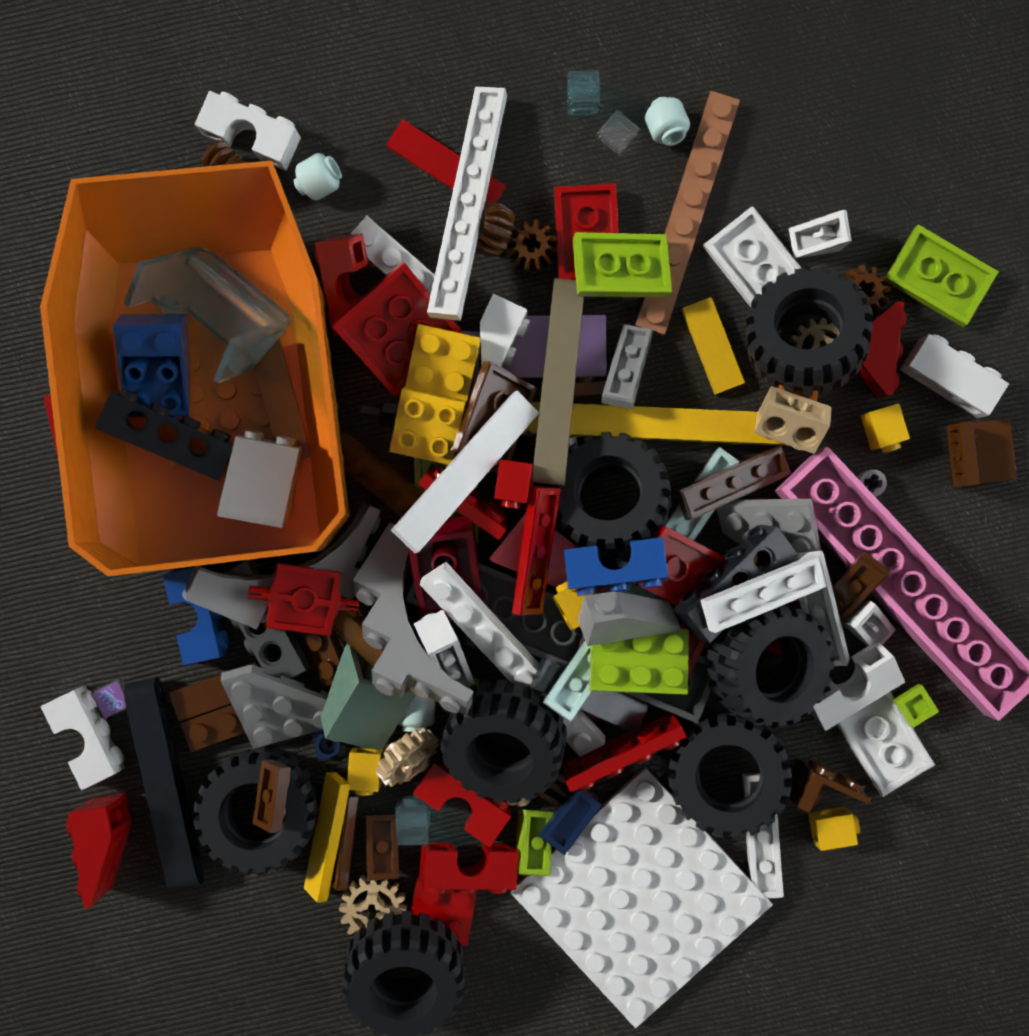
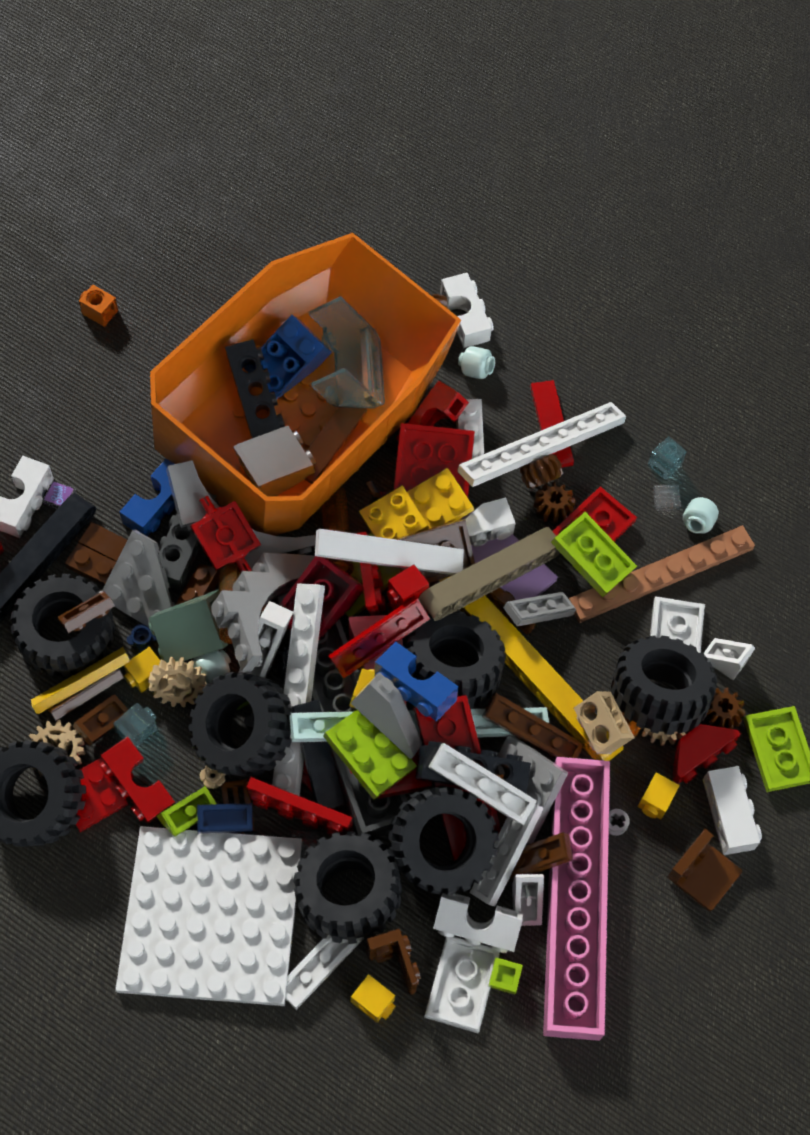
camera: 40 degrees right, 25 degrees down
(486, 817) = (179, 767): red arch -> none
(713, 345) = (602, 654): yellow tile -> none

